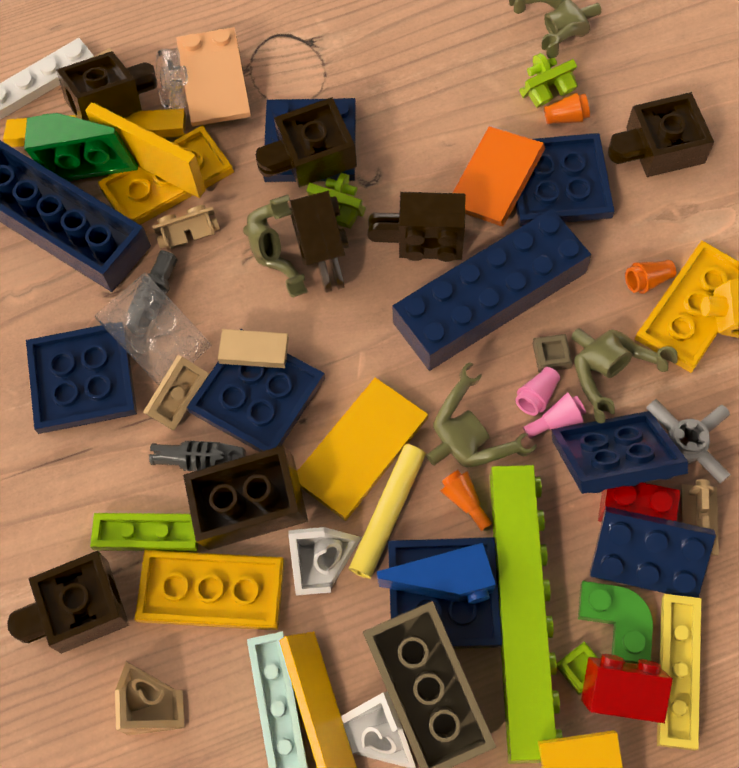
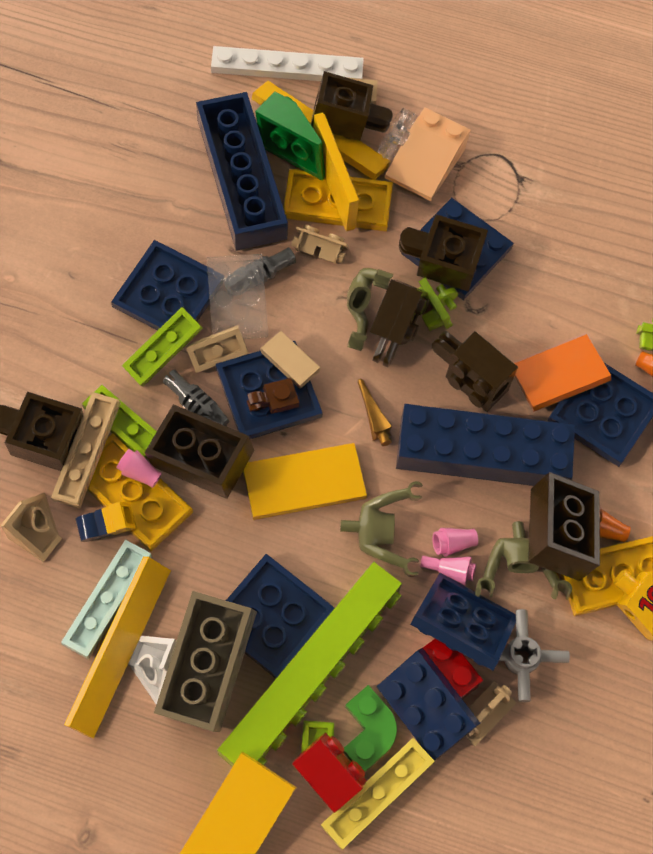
camera: 30 degrees right, 0 degrees up
(122, 431) = (162, 347): none -> lime plate
(134, 587) = (85, 450): none -> tan tile
(201, 561) = (137, 467): none -> bright pink cone
(213, 638) = (106, 522): none -> leg
(270, 390) = (277, 396): none -> reddish brown plate
(319, 557) = (214, 527): white slope -> none
(378, 342) = (378, 423): none -> pearl gold piece
(387, 511) = (284, 535): light yellow piece -> none
(448, 576) = (283, 607): blue slope -> none
(463, 494) = (342, 563): orange cone -> none
(552, 352) = (489, 523): dark tan tile -> none
(624, 301) = (564, 527): none -> dark brown brick

